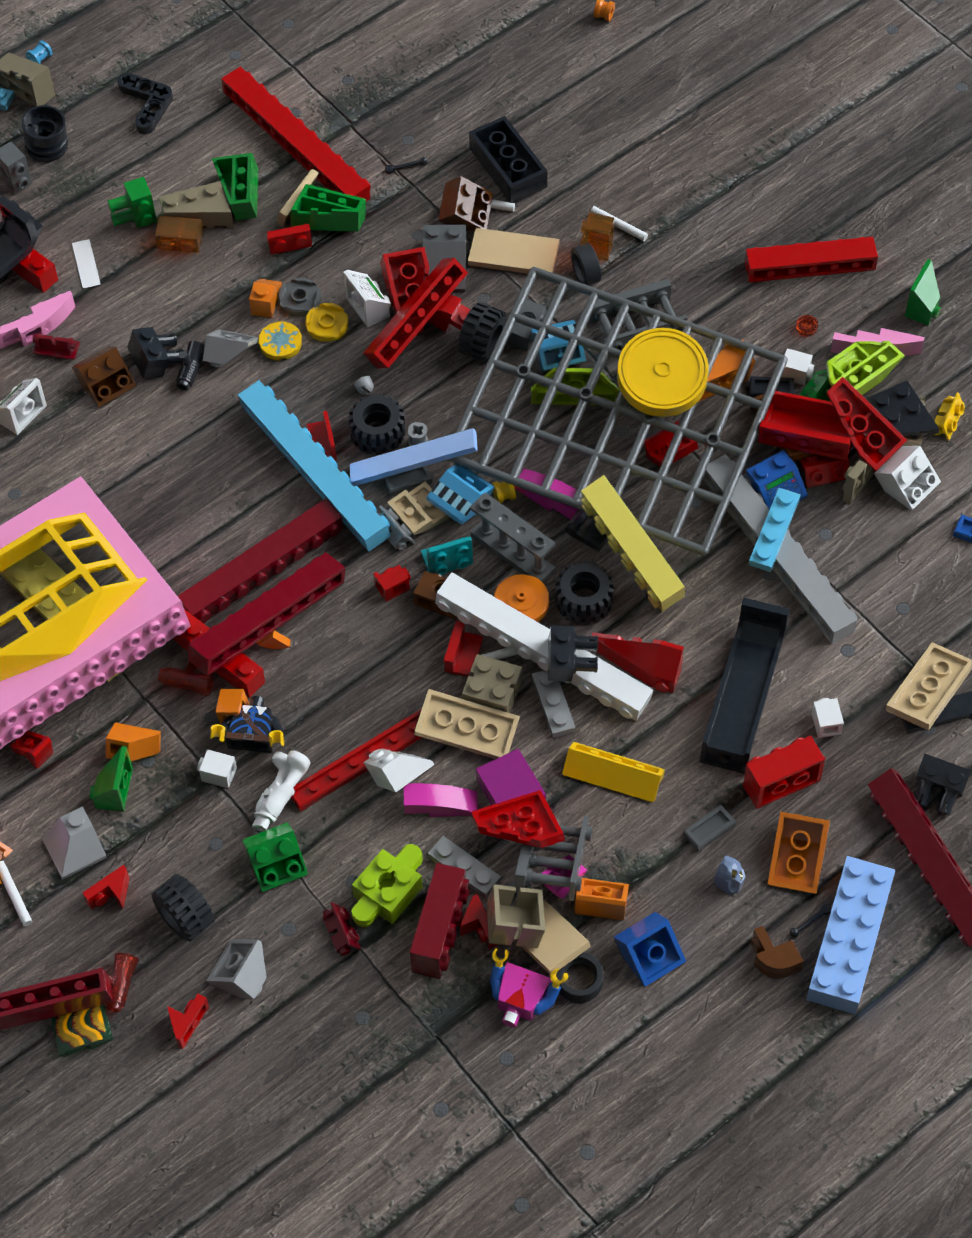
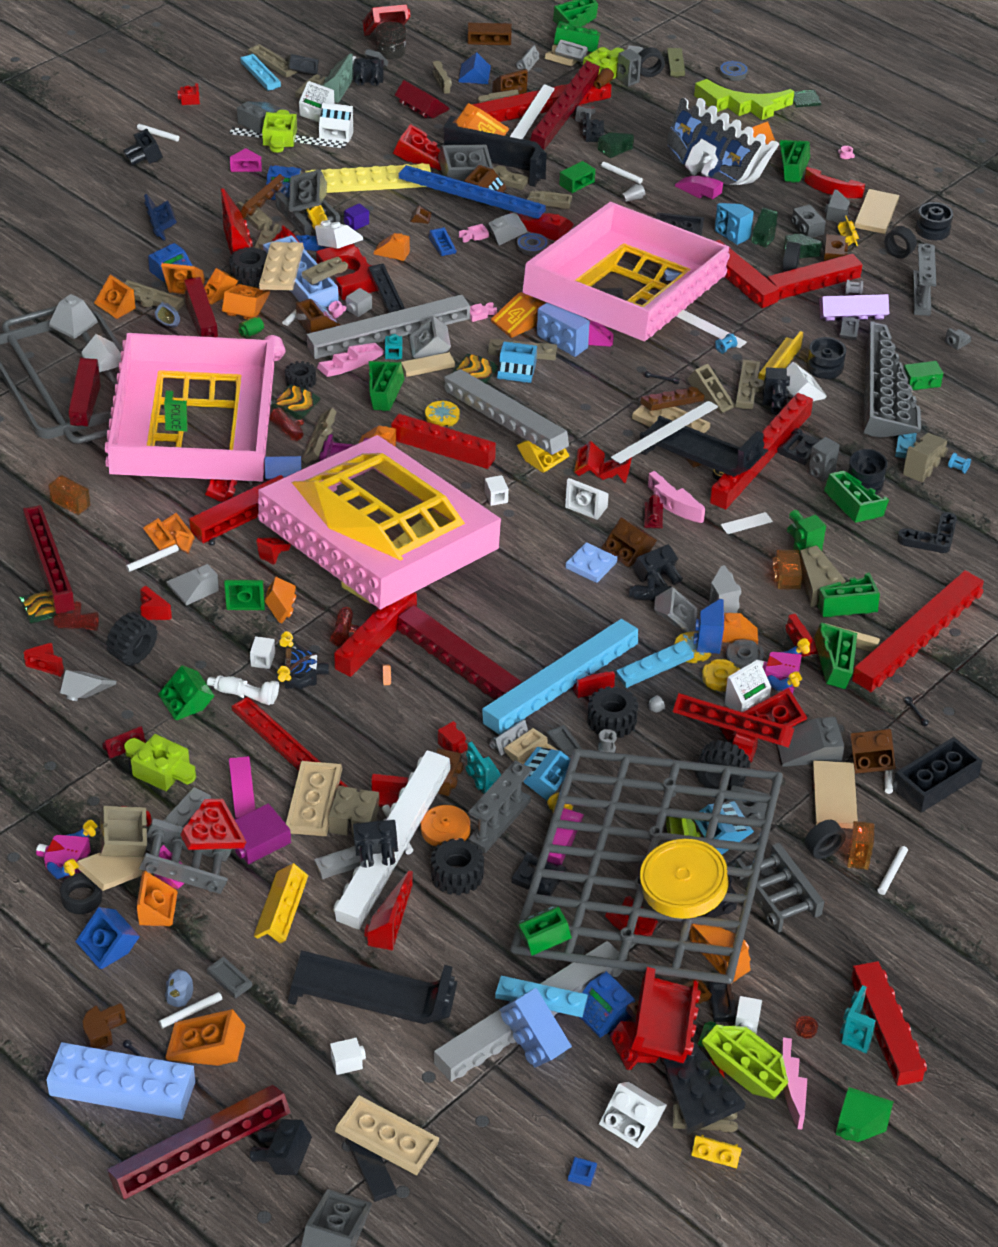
camera: 80 degrees right, 15 degrees down
(79, 154) = (854, 498): none -> green wedge
(123, 418) = (591, 562): none -> light blue plate
(216, 295) = (725, 588): none -> light grey slope
(230, 703) = (320, 647): orange panel -> none
(266, 613) = (401, 655): dark red brick -> none
(275, 309) = (710, 628): none -> blue slope
(304, 377) = (655, 664): none -> medium azure plate
(331, 261) = (784, 667): none -> torso
(395, 769) = (265, 751): white slope -> none
(413, 457) = (574, 732): light blue tile -> none
(439, 921) = (125, 787): dark red brick -> none
(632, 543) = (501, 883): light yellow brick -> none
(696, 511) = (544, 929): none -> green slope
(752, 868) = (171, 1019): none -> white bar
(783, 771) = (280, 1017): red brick -> none
(813, 280) = (857, 1028): none -> teal bracket
(822, 535) = (535, 1028): none -> medium blue brick
(856, 479) = (612, 1066): dark tan plate -> none
(869, 431) = (662, 1060): red wedge -> none

